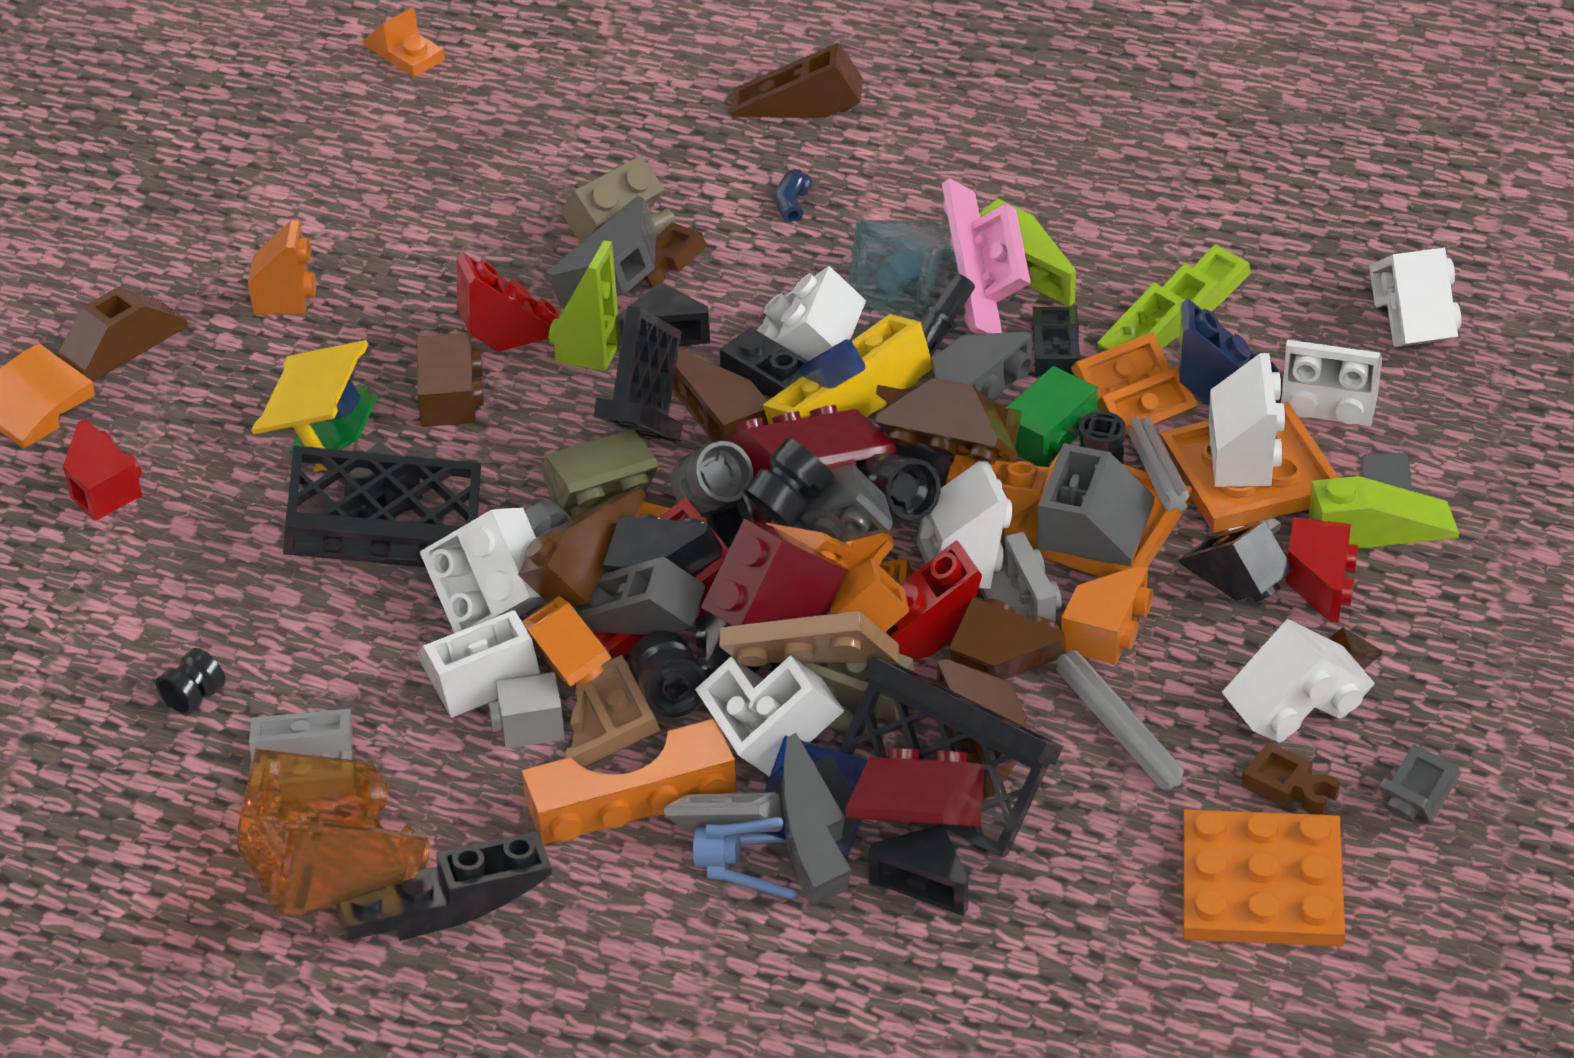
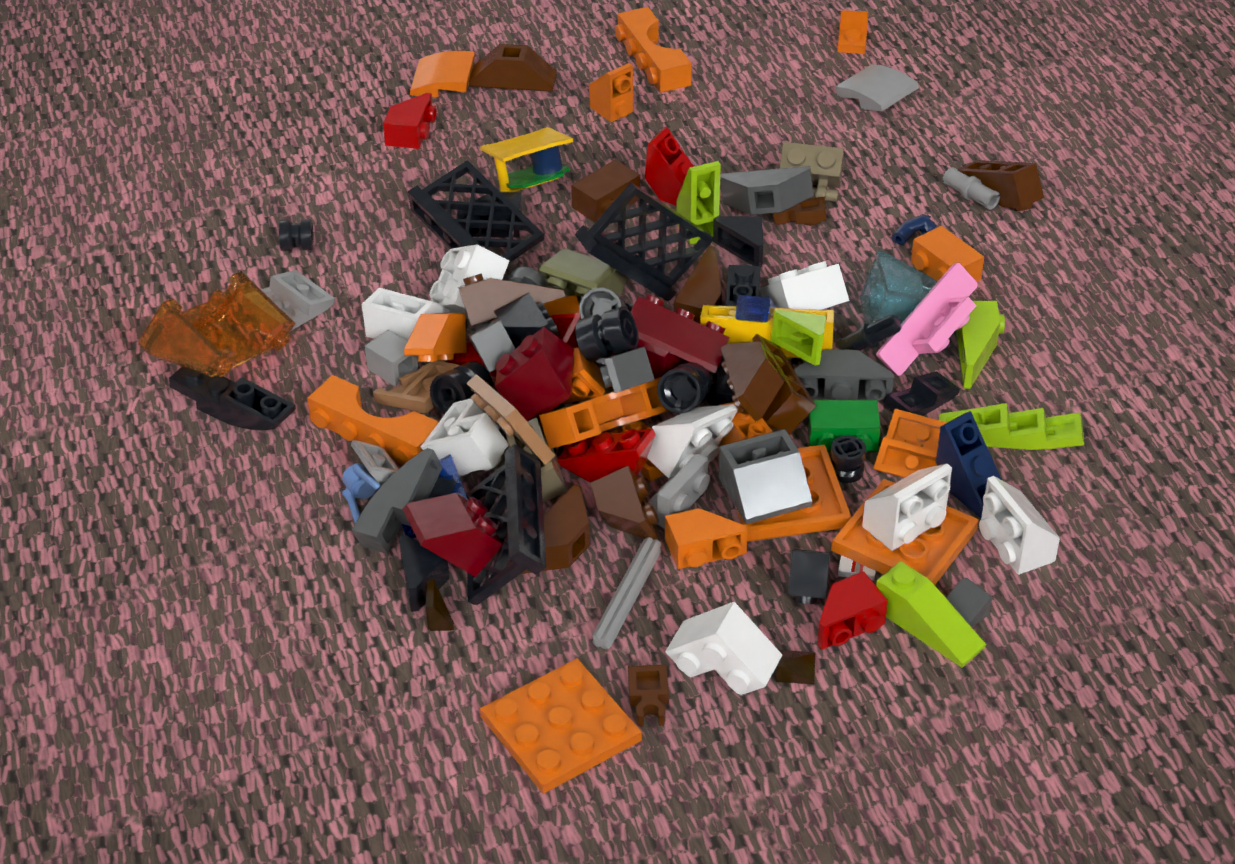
camera: 50 degrees right, 0 degrees up
(182, 197) = (664, 66): none -> orange arch
(525, 80) = (877, 87): none -> light grey slope
(779, 117) = (971, 188): none -> light grey pin
(875, 195) = (940, 249): none -> orange brick
(914, 355) = (799, 334): none -> lime slope
(994, 887) = (437, 613): none -> dark brown slope
(1158, 464) = (846, 489): light grey axle -> none
(1417, 296) = (1140, 524): white brick -> none
(1419, 785) = (700, 757): dark grey bracket -> none

